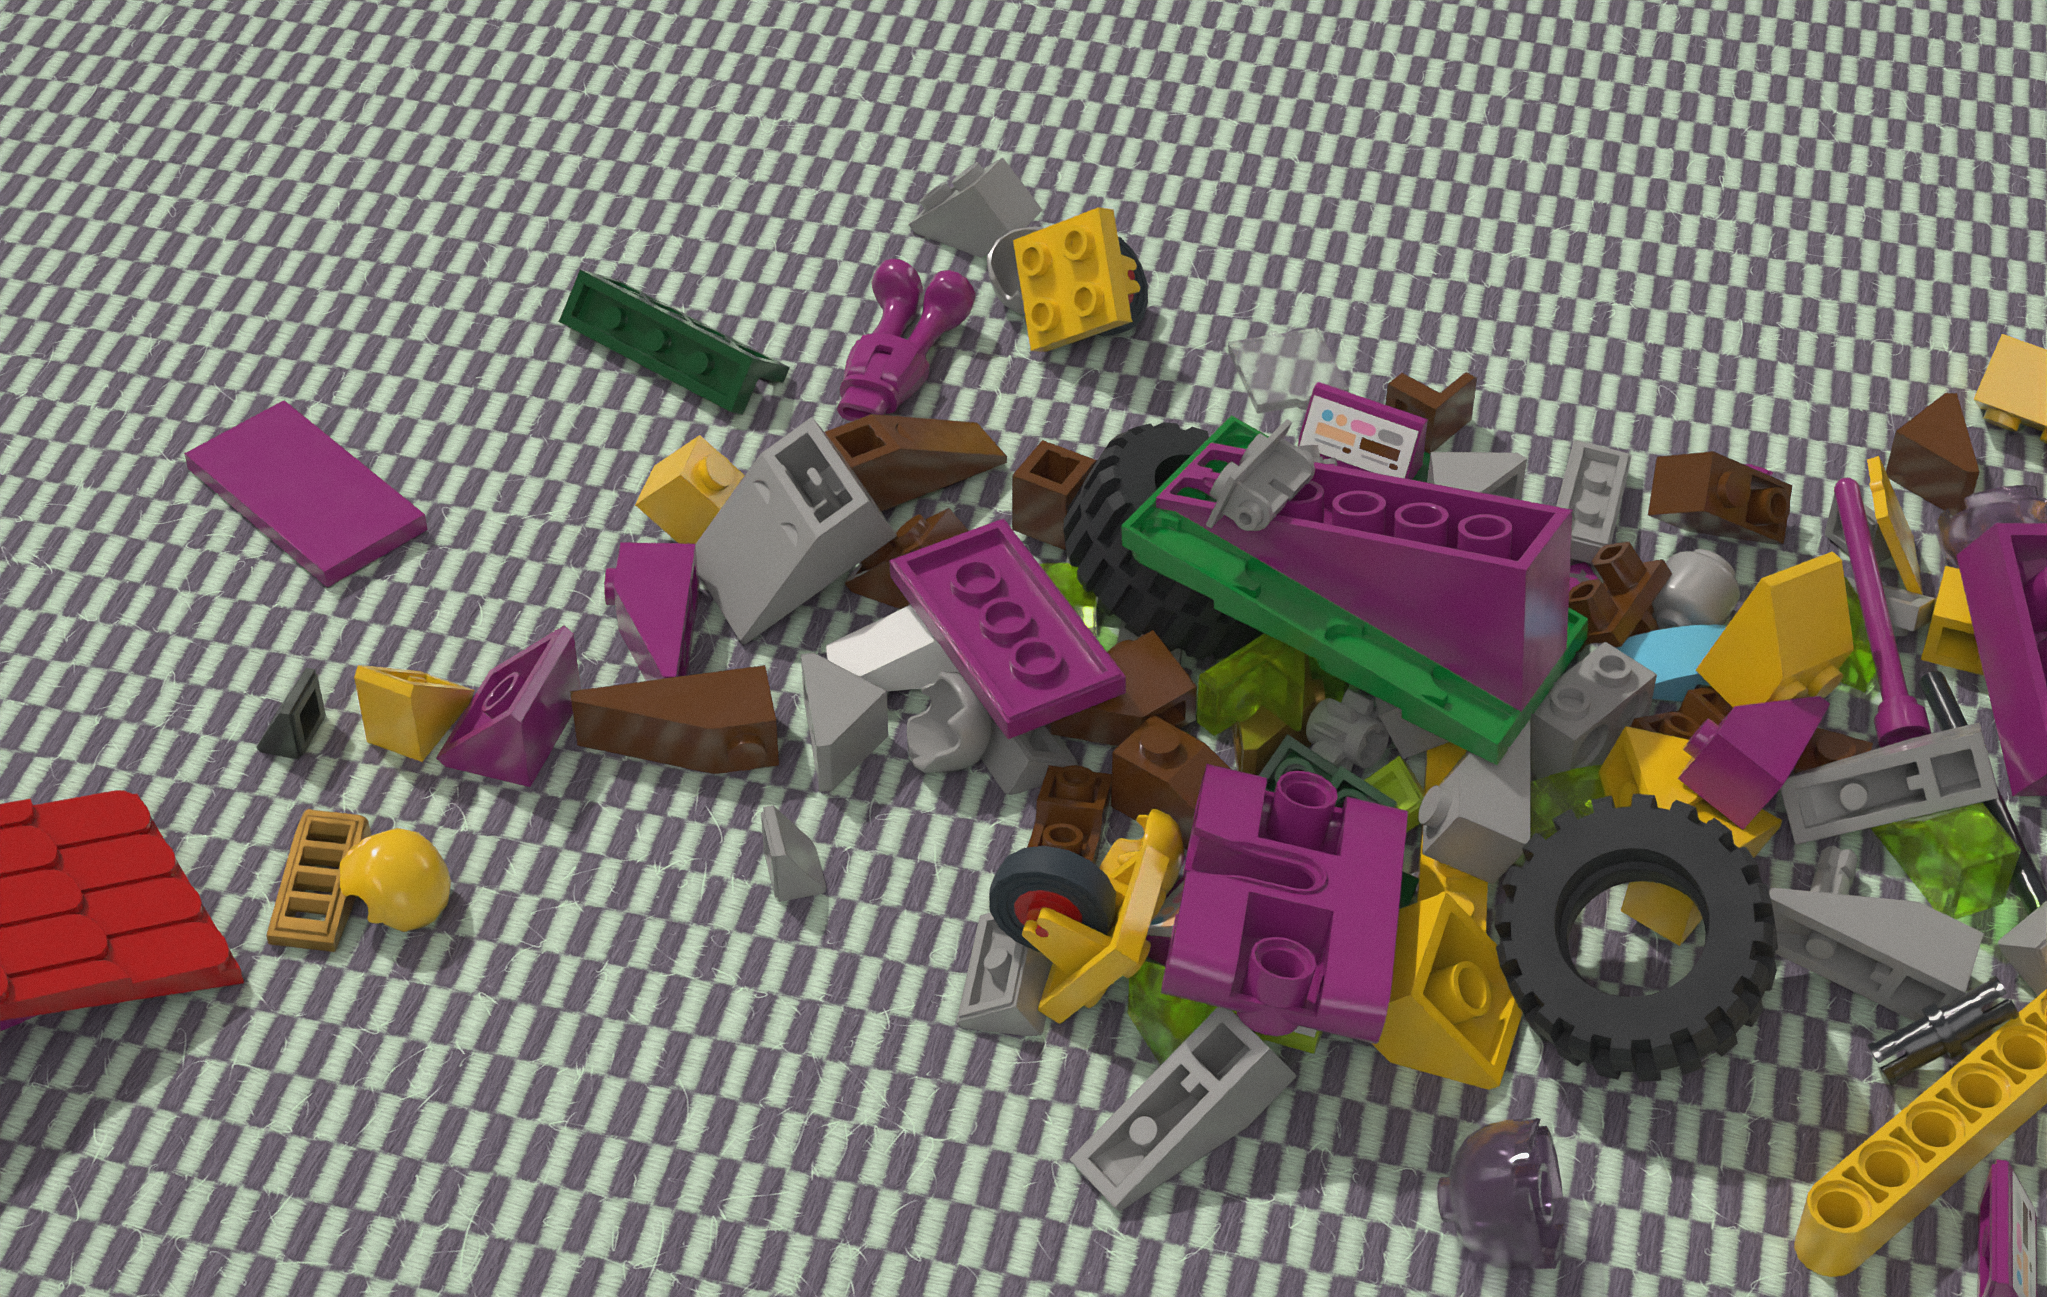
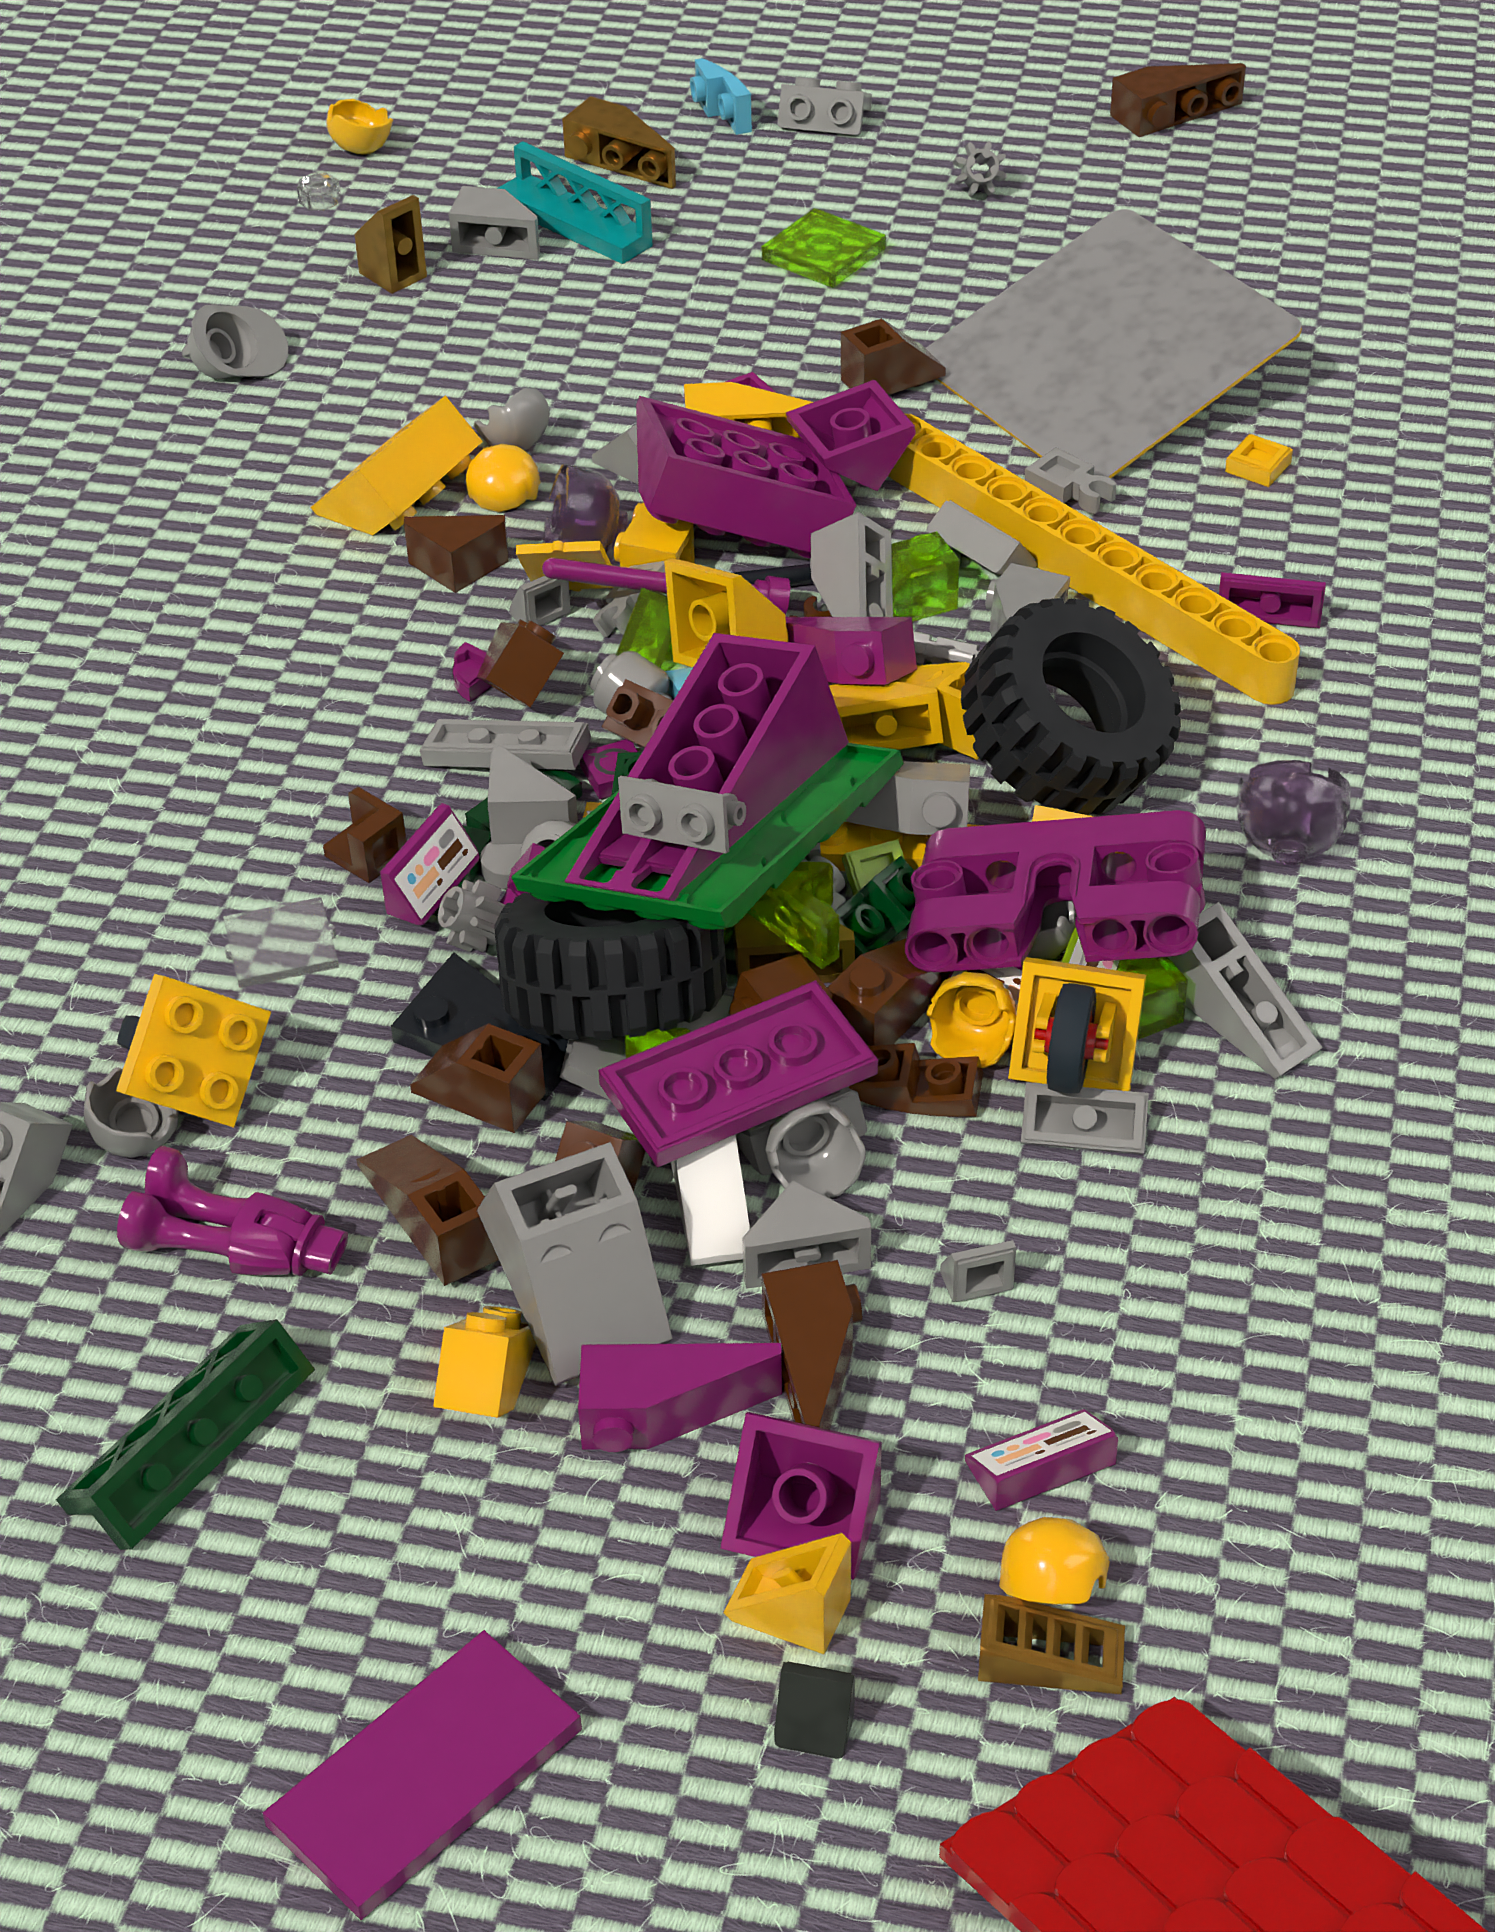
camera: 90 degrees left, 0 degrees up
(545, 896) = (1043, 1458): none -> magenta slope
(1943, 1030) = (1090, 578): black pin -> none

